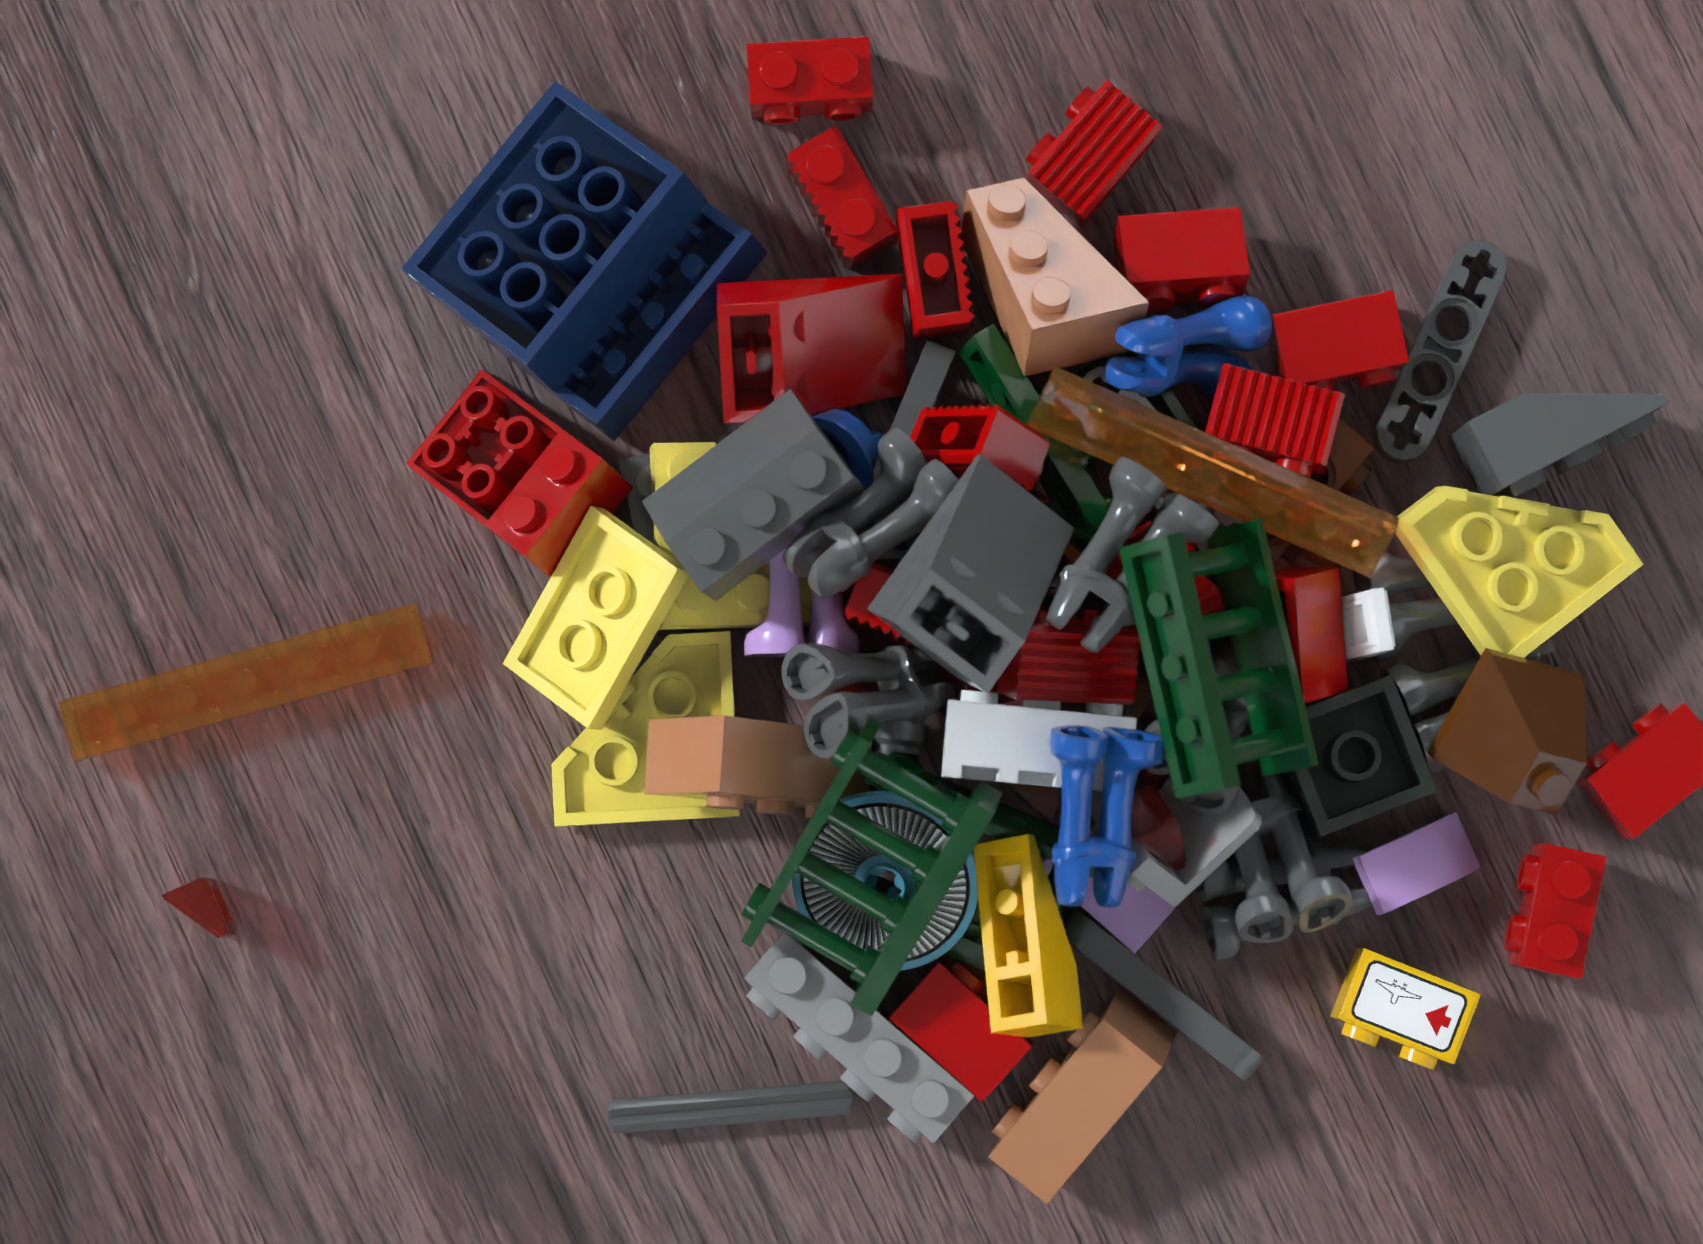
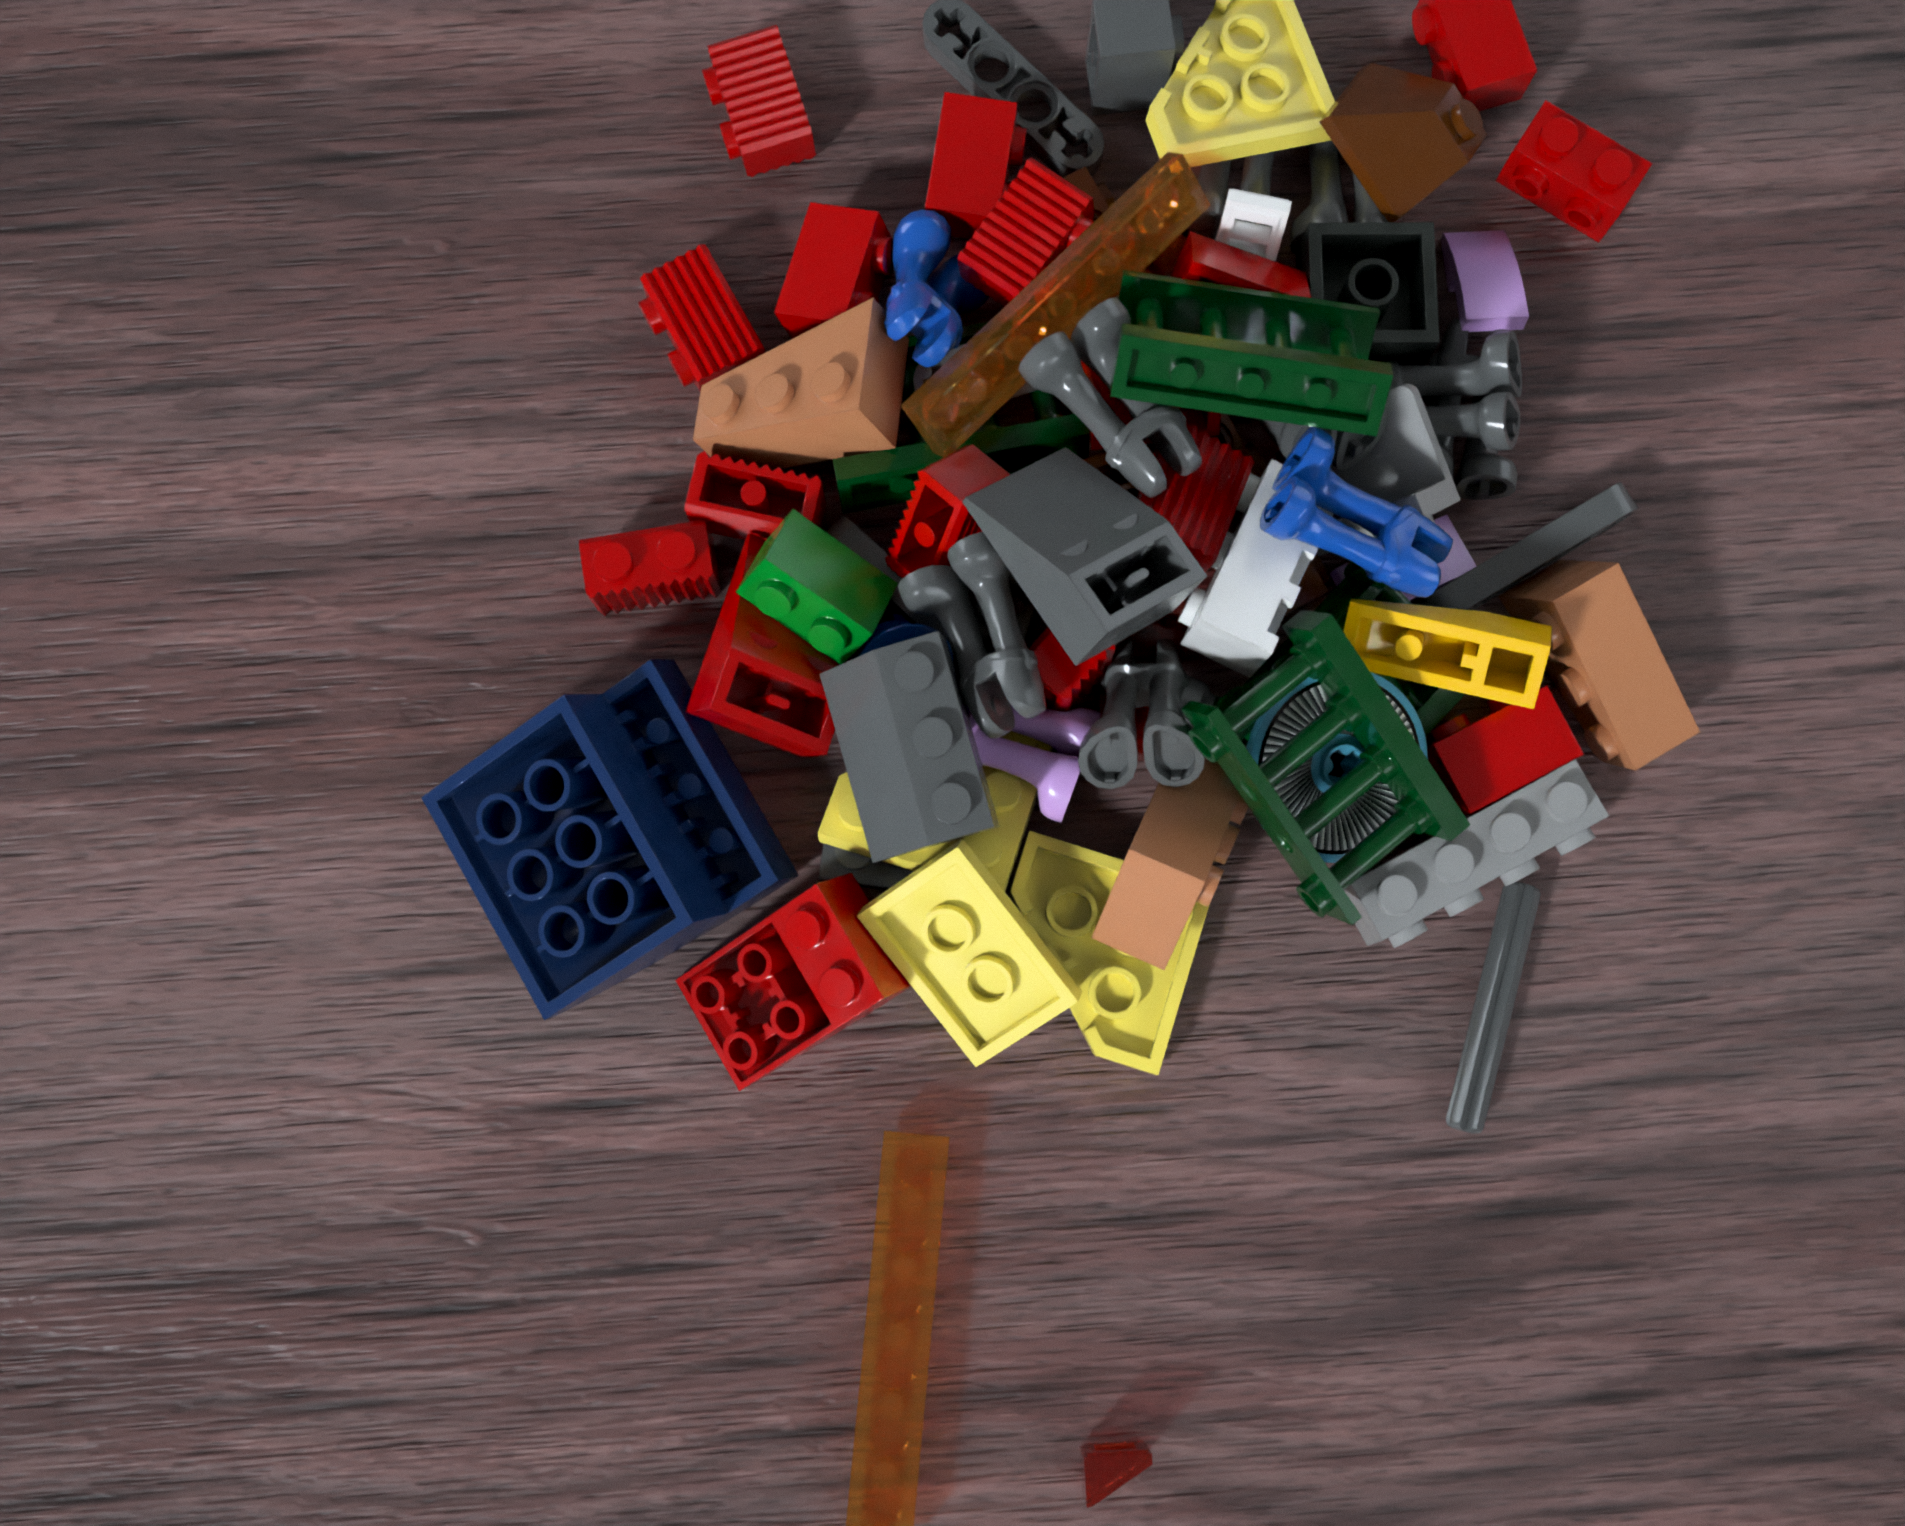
camera: 70 degrees left, 5 degrees down
(810, 79) = (522, 553): red brick -> none
(869, 356) = (817, 587): none -> green brick
(1157, 827) = (1385, 479): clear red slope -> none
(1330, 119) = (761, 100): none -> red brick
(1404, 1007) = (1614, 338): brick -> none

